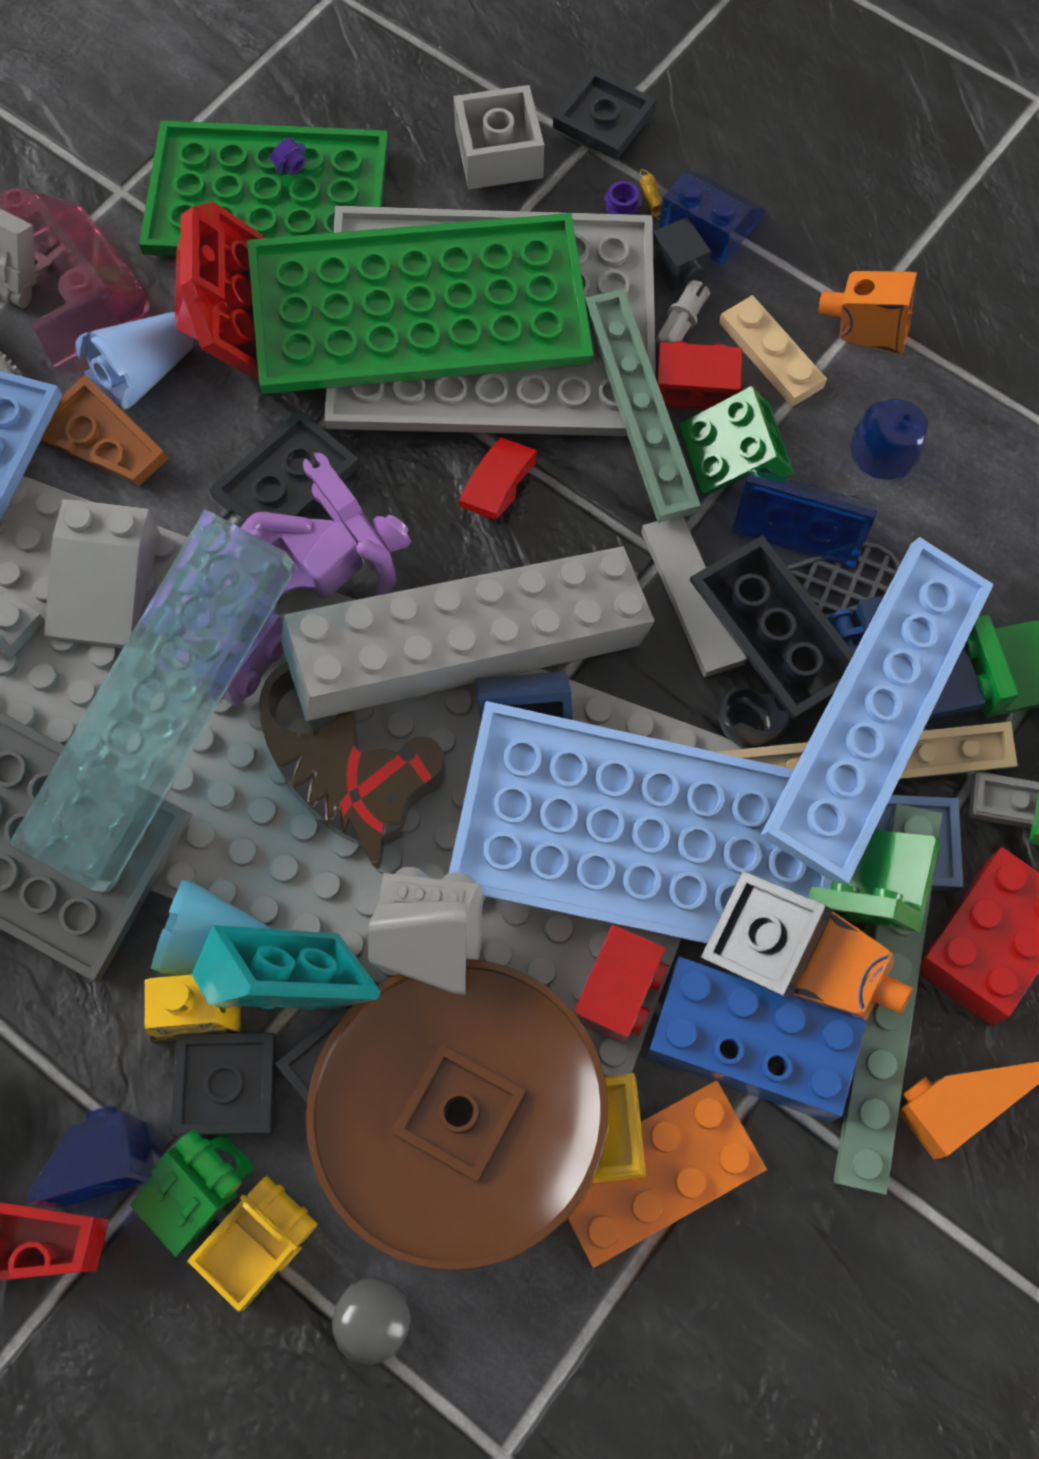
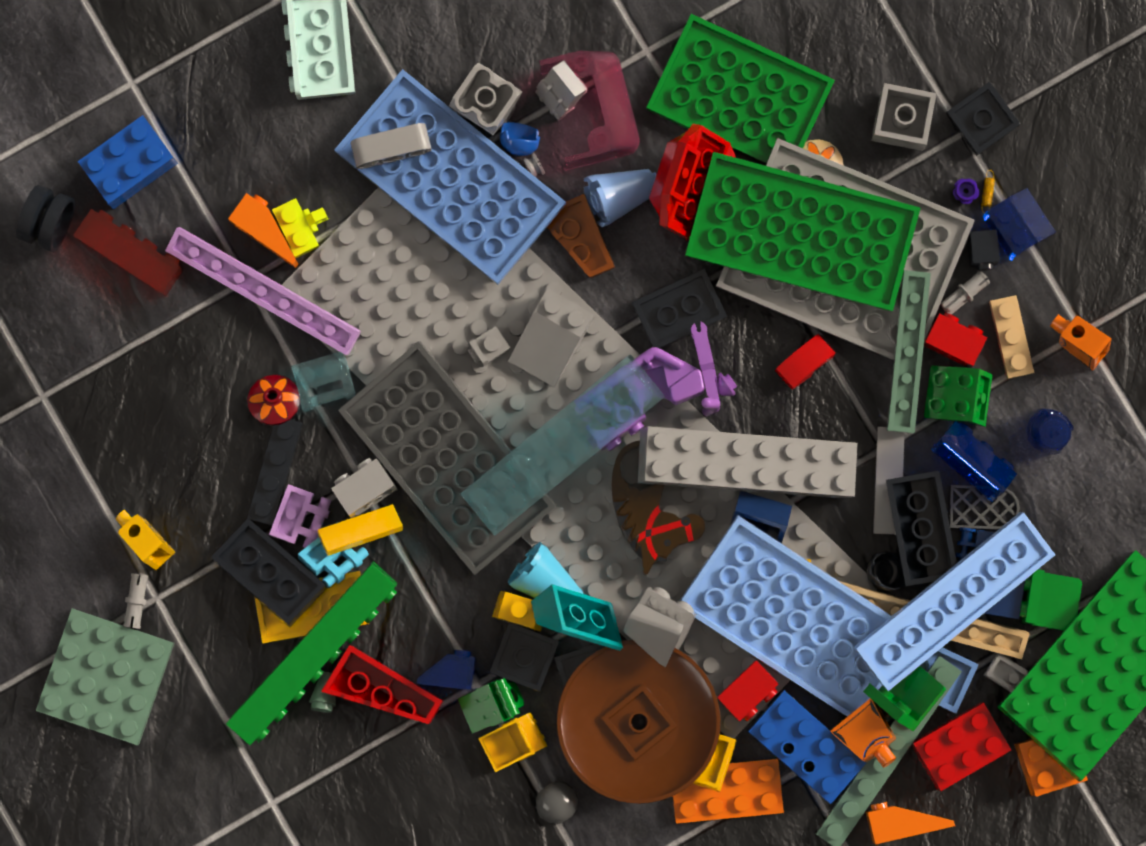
camera: 25 degrees right, 15 degrees up
(288, 157) = (762, 83): dark purple plate -> none
(766, 934) = (833, 699): plate -> none

